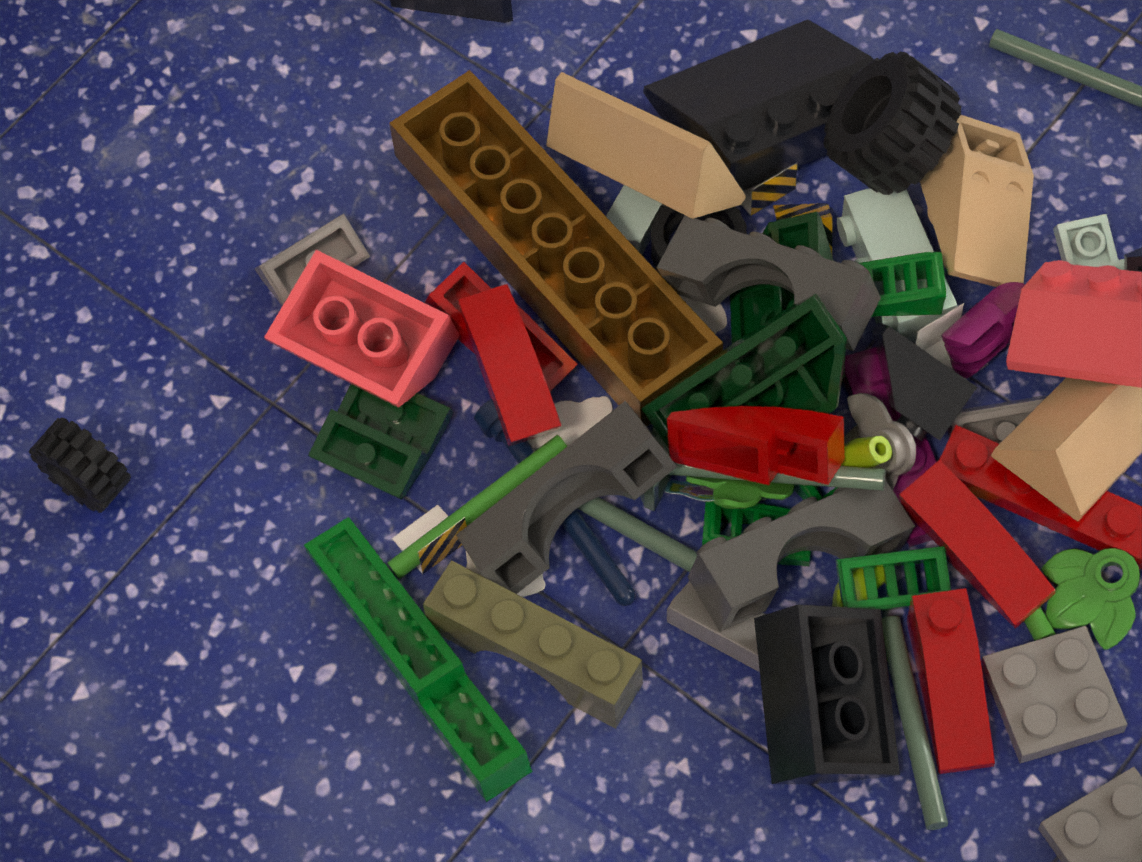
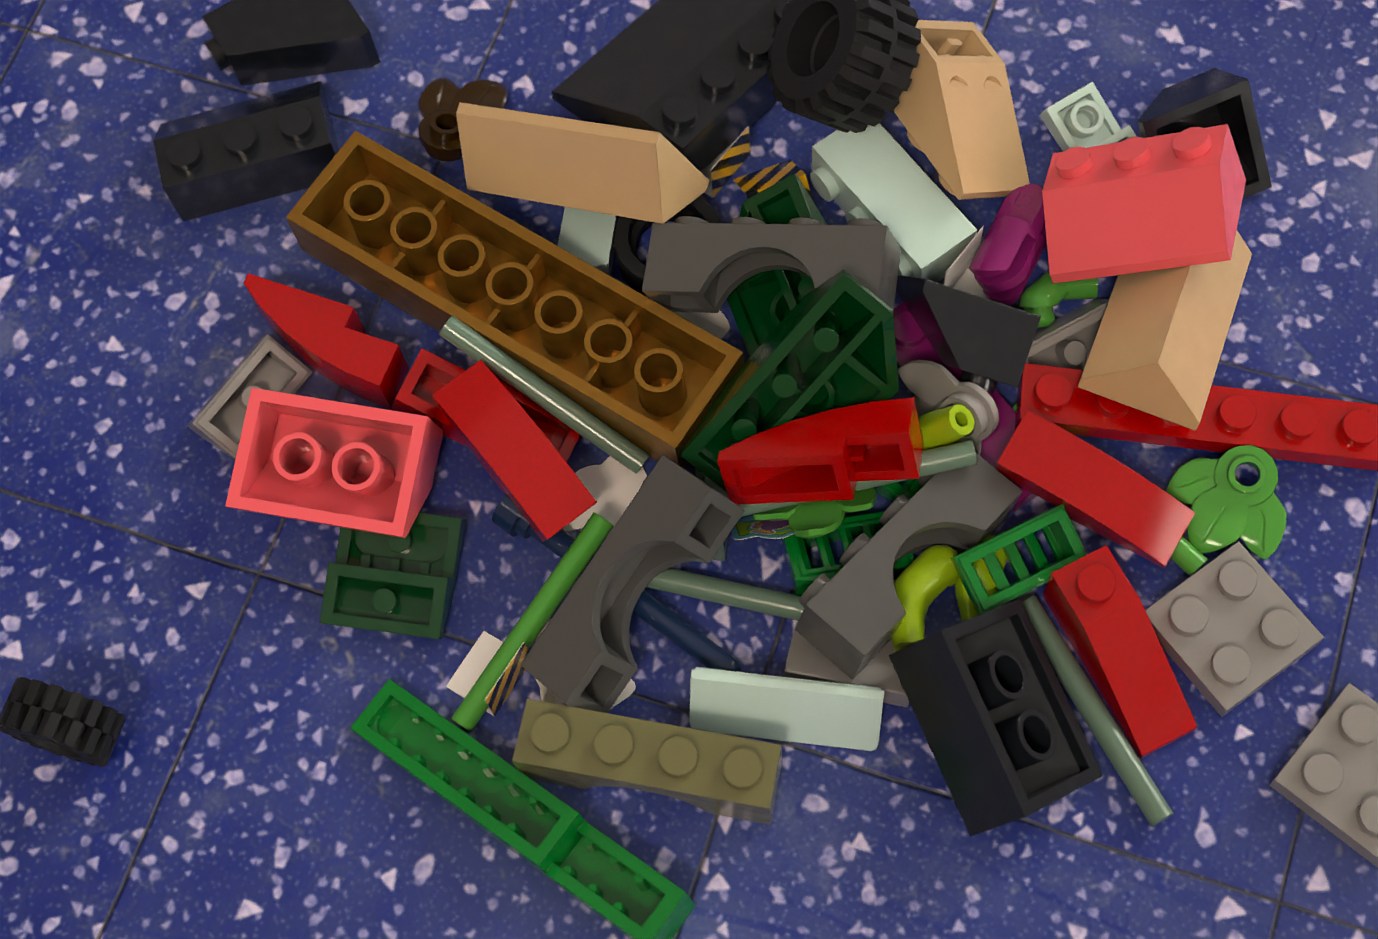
camera: 15 degrees left, 5 degrees up
(376, 61) = (245, 151): none -> black slope
(393, 234) = (331, 340): none -> red slope
(546, 67) = (439, 106): none -> dark brown plate
(550, 329) = (544, 394): none -> sand green bar
(662, 639) = (786, 709): none -> light aqua slope
(805, 577) = (919, 587): none -> lime arm
(910, 269) = (916, 206): green slope -> none
(996, 377) = (1043, 295): none -> bright green arm

